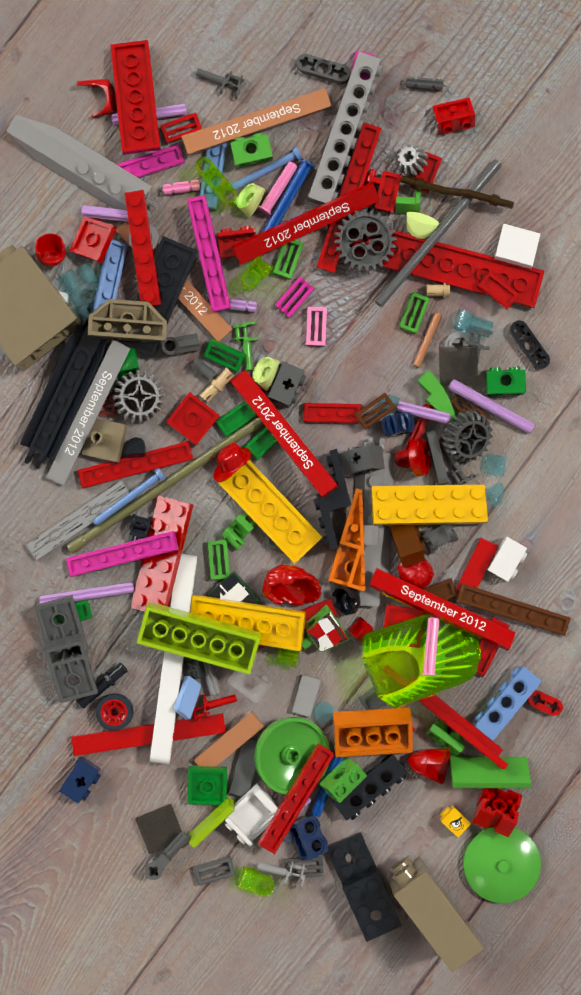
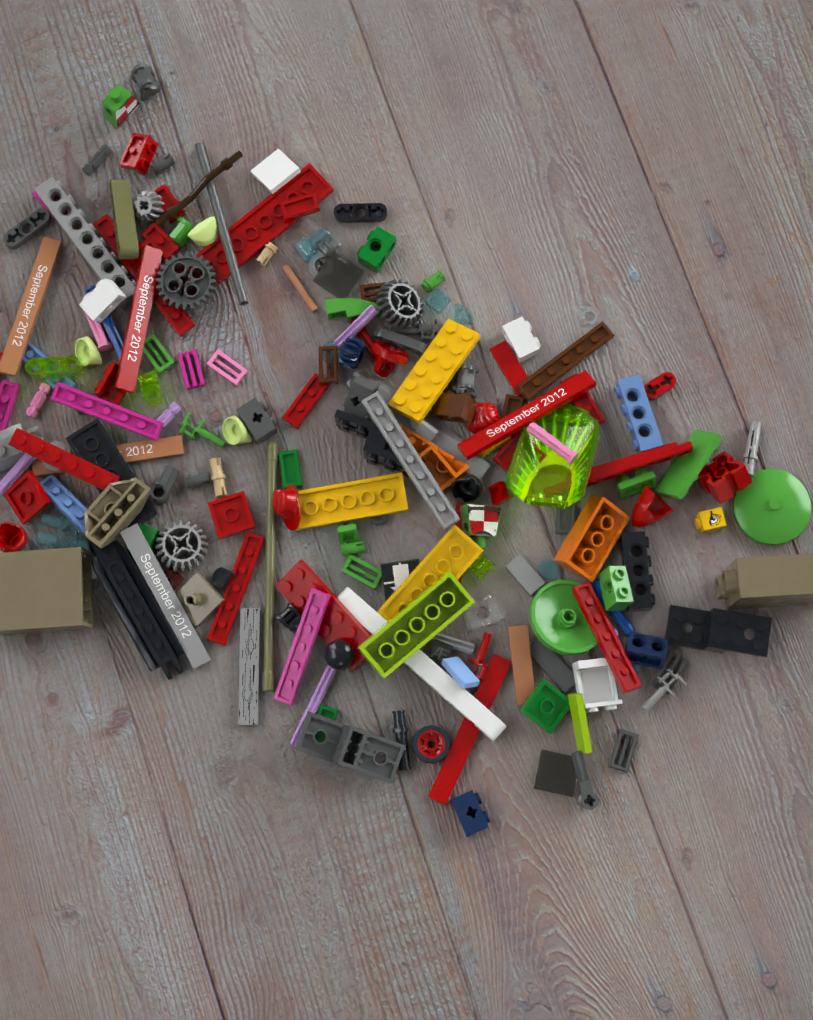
camera: 50 degrees left, 10 degrees down
(129, 497) = (258, 572): medium blue bar -> none
(135, 589) = (339, 654): none -> black hair
(235, 419) = (256, 480): green tile -> none
(240, 355) = (195, 448): green tile -> none
(244, 159) = (52, 335): bright green brick -> none
(253, 881) = (653, 723): clear neon green piece -> none
(267, 169) = (79, 293): medium blue bar -> none
(284, 434) = (295, 446): red tile -> none
(291, 586) = (420, 527): red hair -> none
(300, 181) = (102, 300): none -> white brick
(333, 540) = (410, 460): none -> light grey tile
(385, 147) = (123, 219): none -> olive beam
(408, 328) = (280, 297): bright green tile -> none
(458, 143) = (163, 163): none -> dark grey pin
(485, 68) = (119, 105): none -> bright green torso
(491, 406) = (388, 272): lavender axle -> none
(508, 449) = (432, 282): none -> bright green pin
(526, 70) = (144, 77): none -> dark grey piece
(532, 820) = (750, 456): none -> light grey pin

